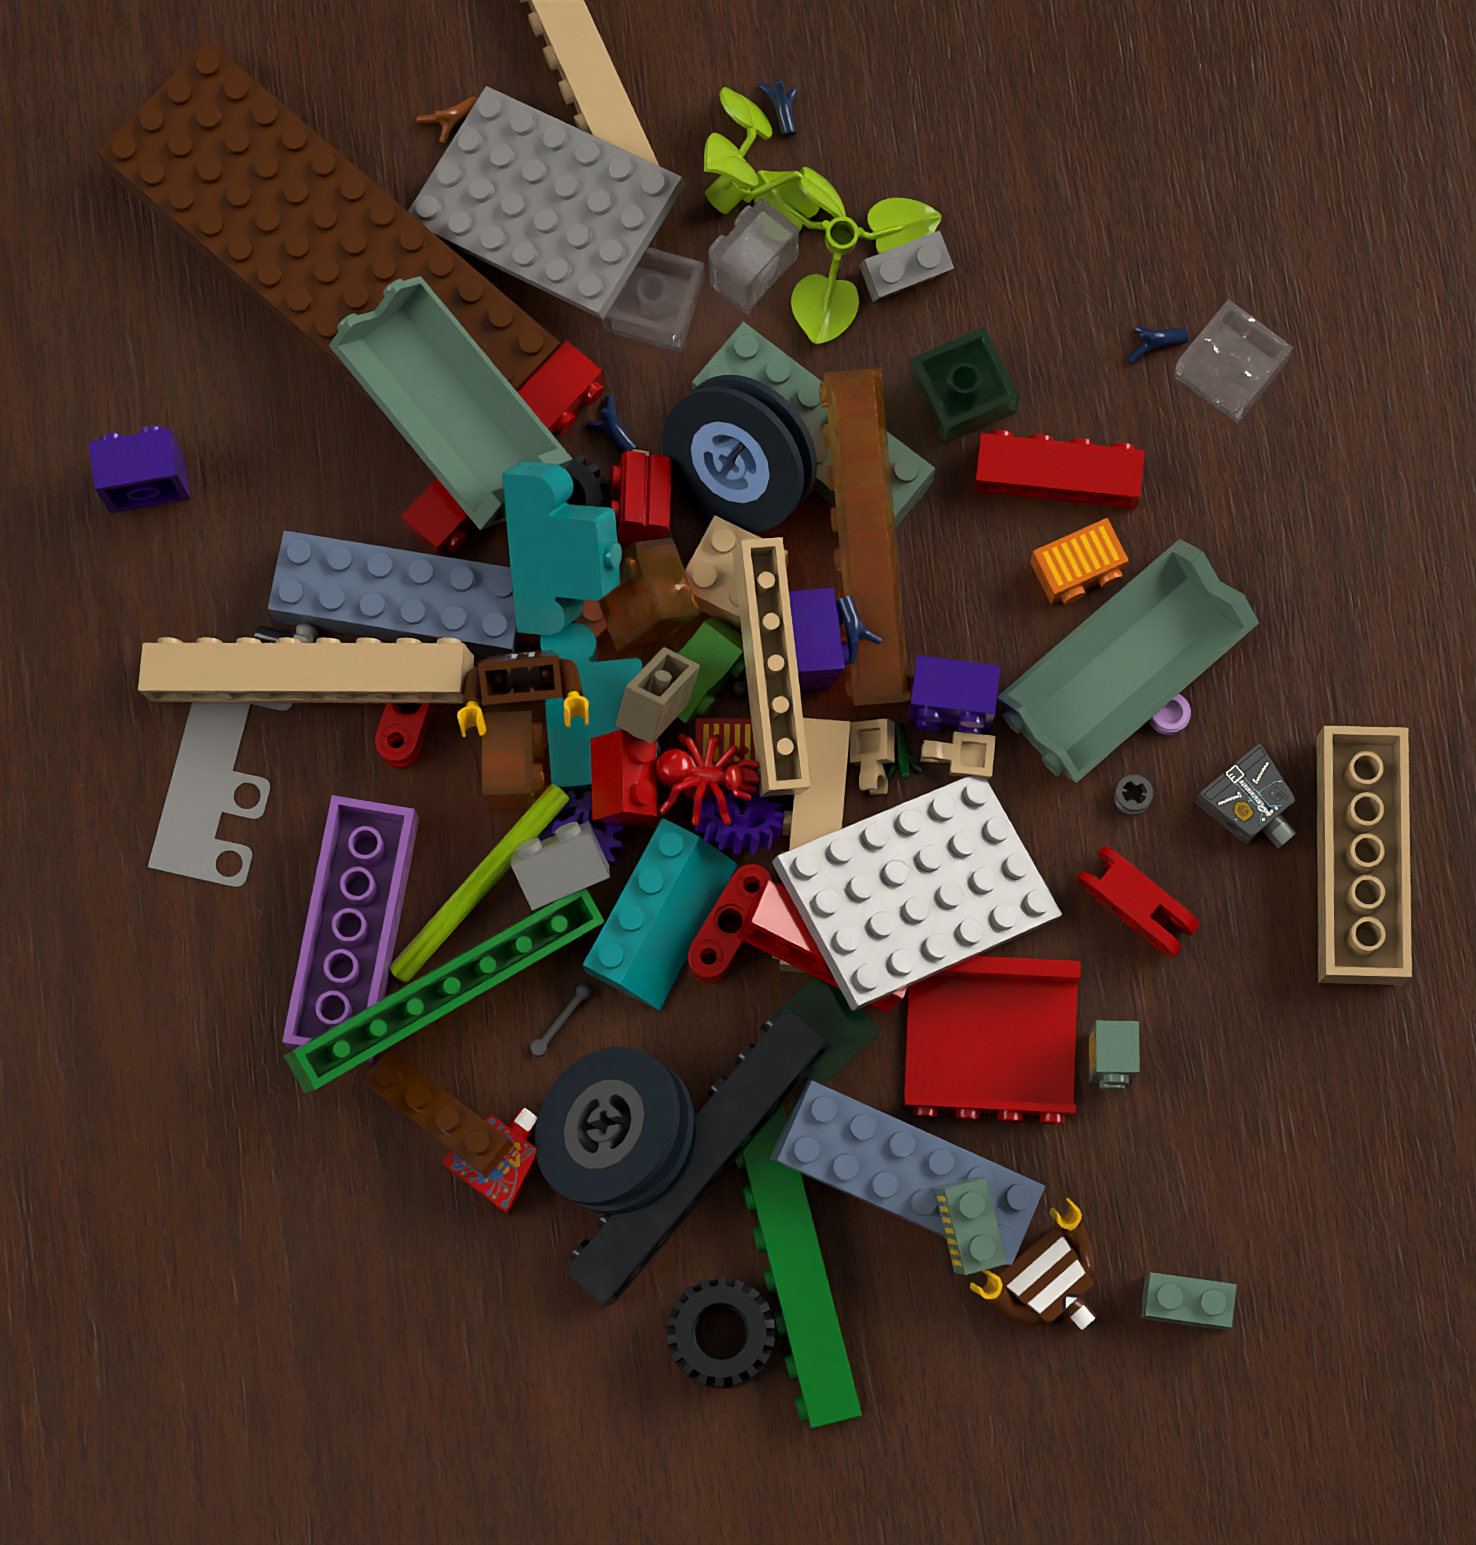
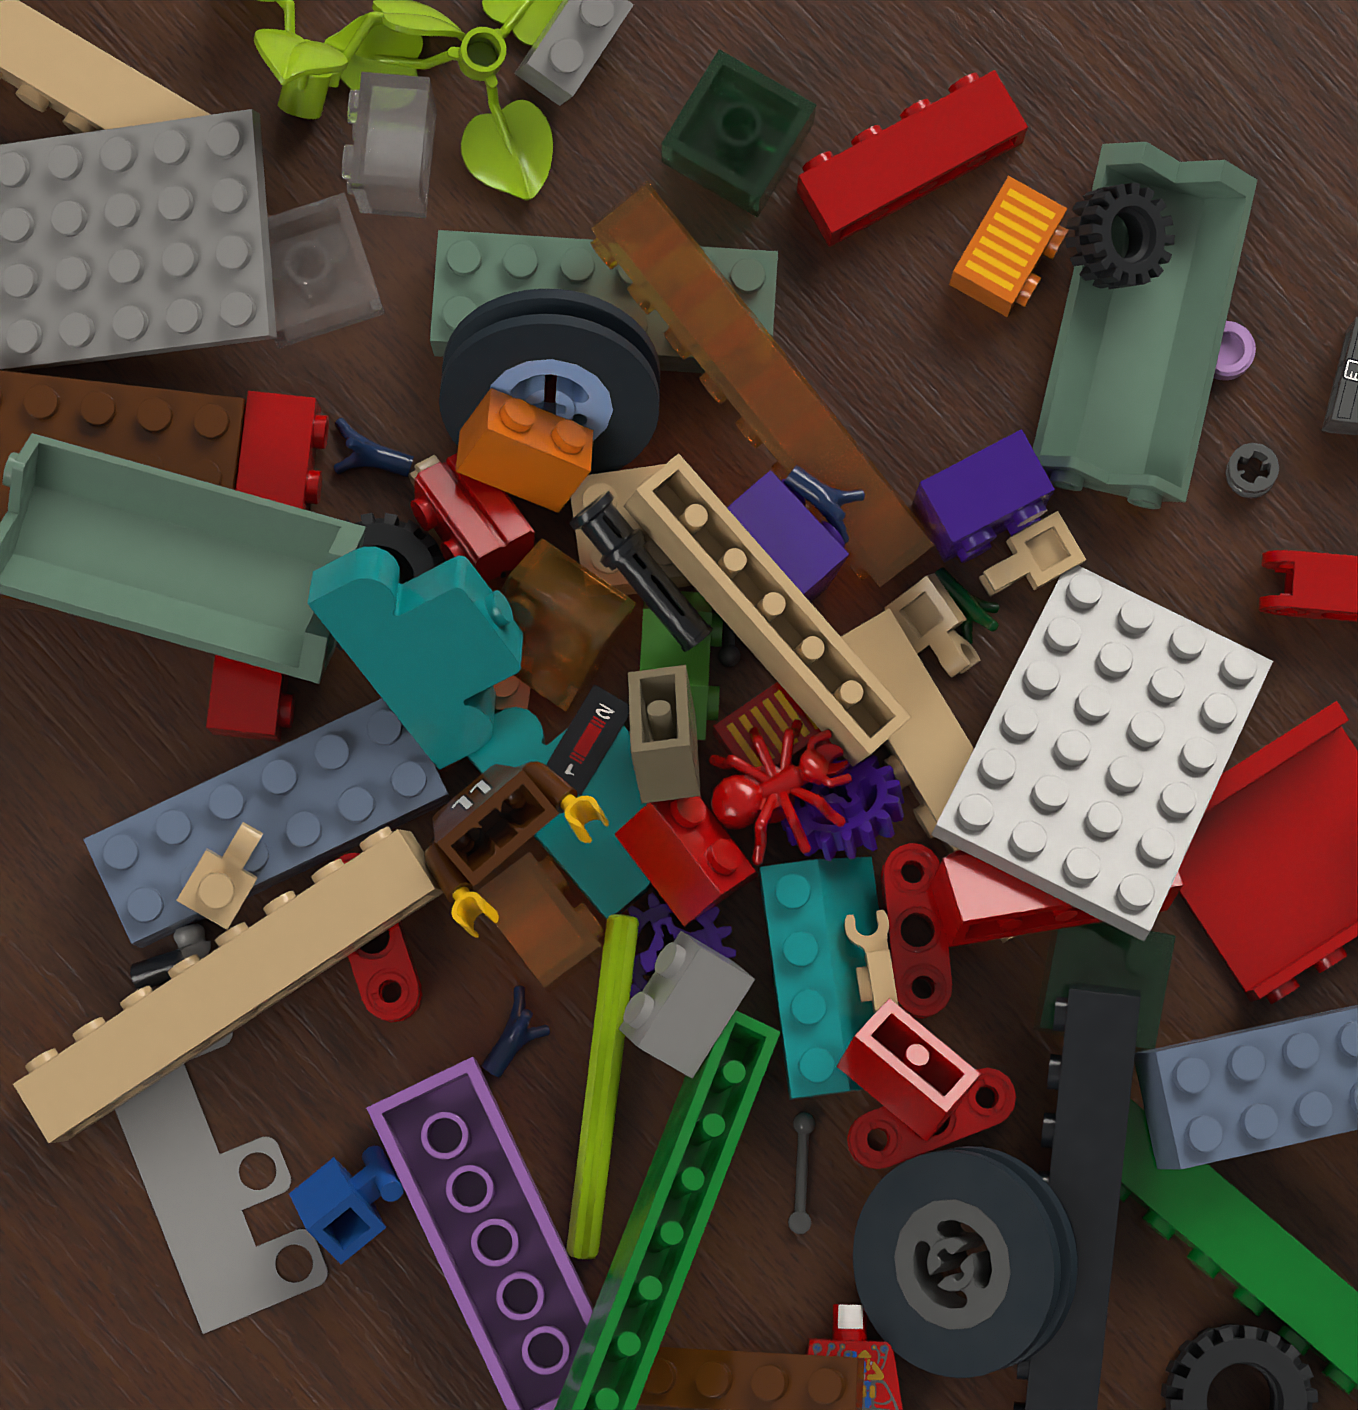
camera: 40 degrees left, 5 degrees up
(277, 846) = (341, 1206): none -> blue brick
(342, 608) = (220, 882): none -> tan plate
(451, 821) = (514, 1035): none -> dark blue bar
(612, 675) = (588, 738): none -> black sticker
(660, 992) = (908, 1069): none -> red brick
(683, 1034) = (906, 1144): none -> red piece
(685, 929) = (877, 977): none -> tan plate
(697, 479) = (524, 450): none -> orange brick
(714, 575) = (625, 550): none -> black pin
(1170, 598) = (1145, 233): none -> black tyre

